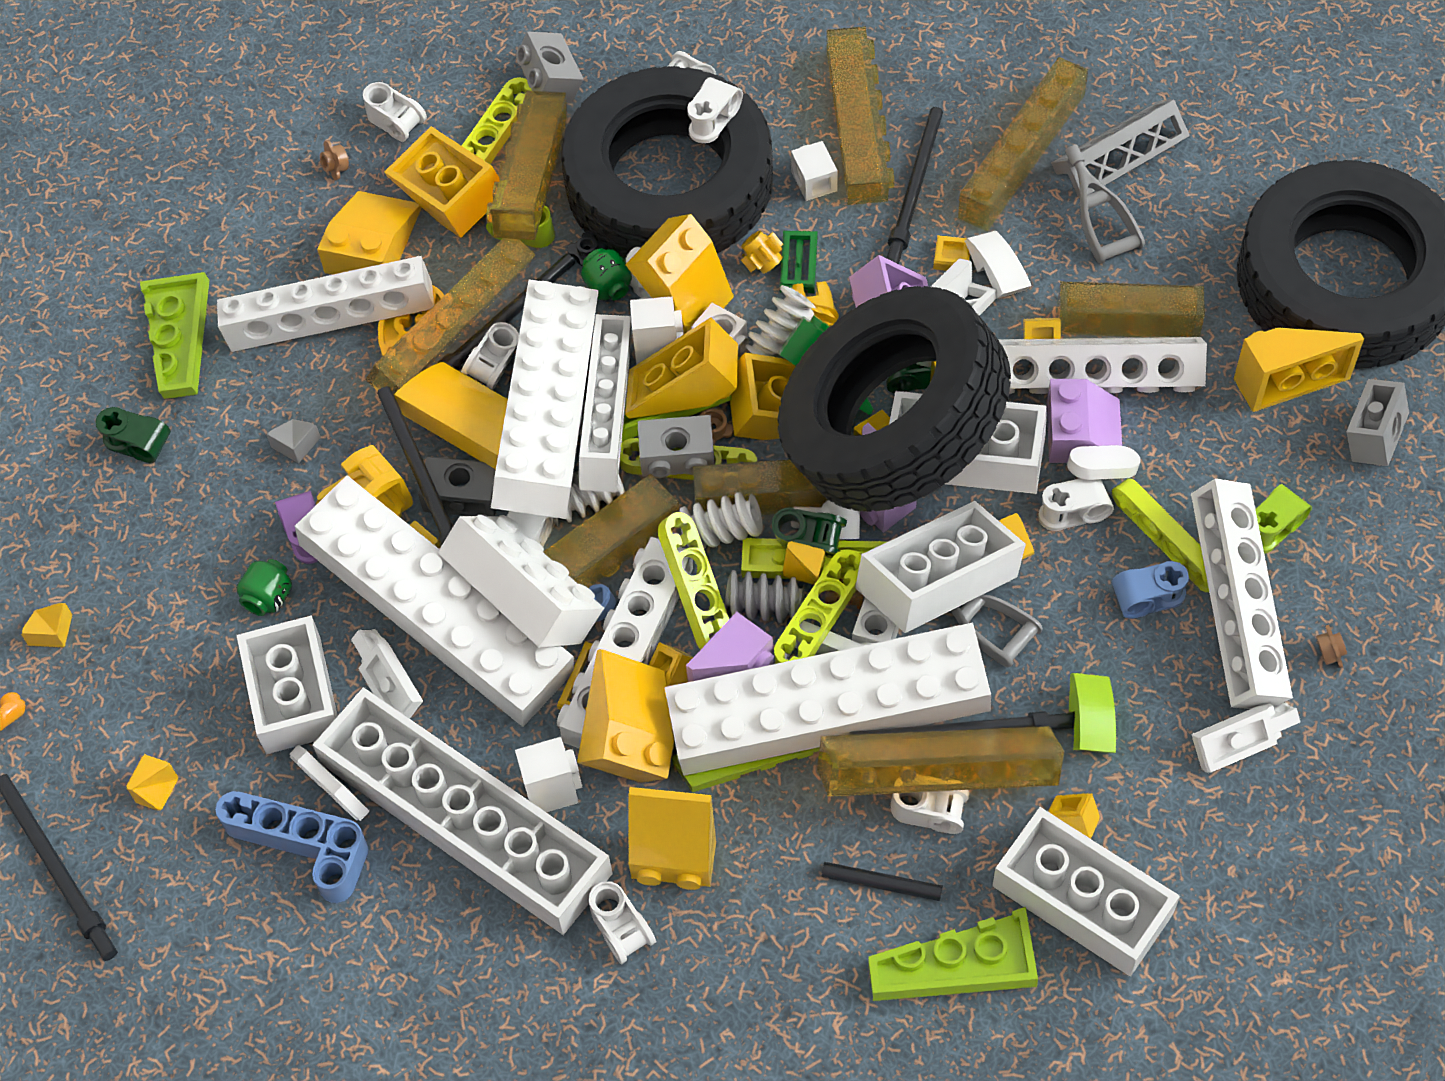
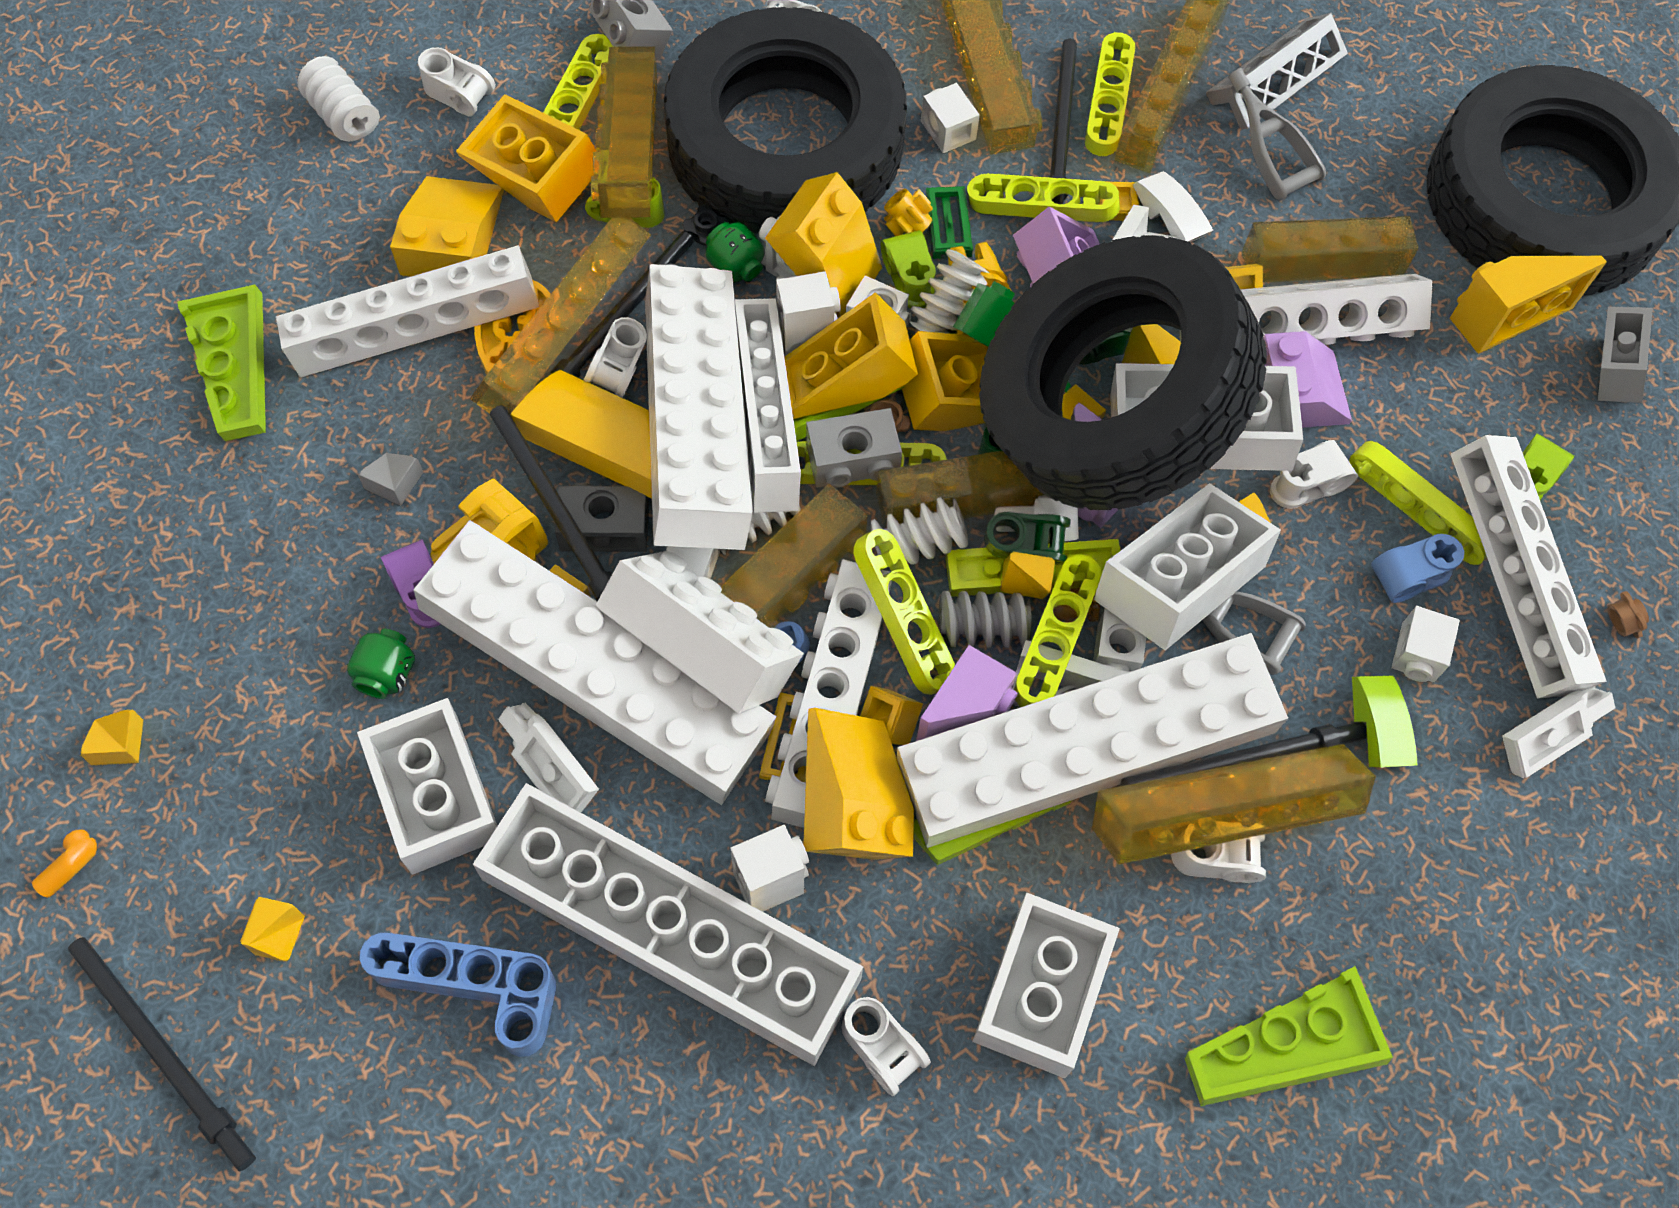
camera: 15 degrees left, 5 degrees up
(132, 433) = (191, 487): dark green piece -> none
(292, 121) = (337, 99): none -> white piece
(328, 783) = (496, 906): white tile -> none
(334, 159) = (393, 141): medium nougat plate -> none
(671, 837) = (935, 936): yellow slope -> none
(712, 109) = (835, 52): white piece -> none
(754, 295) = (909, 265): none -> lime piece
(758, 890) = (1046, 986): none -> white brick
(882, 881) = (1184, 952): black bar -> none
(929, 256) = (1044, 191): none -> neon yellow beam
(962, 158) = (1110, 94): none -> neon yellow beam
(1077, 811) = (1384, 849): yellow slope -> none
(1085, 891) = (1427, 942): white brick -> none
(1103, 462) = (1340, 425): white tile -> none
(1142, 653) = (1425, 644): none -> white brick

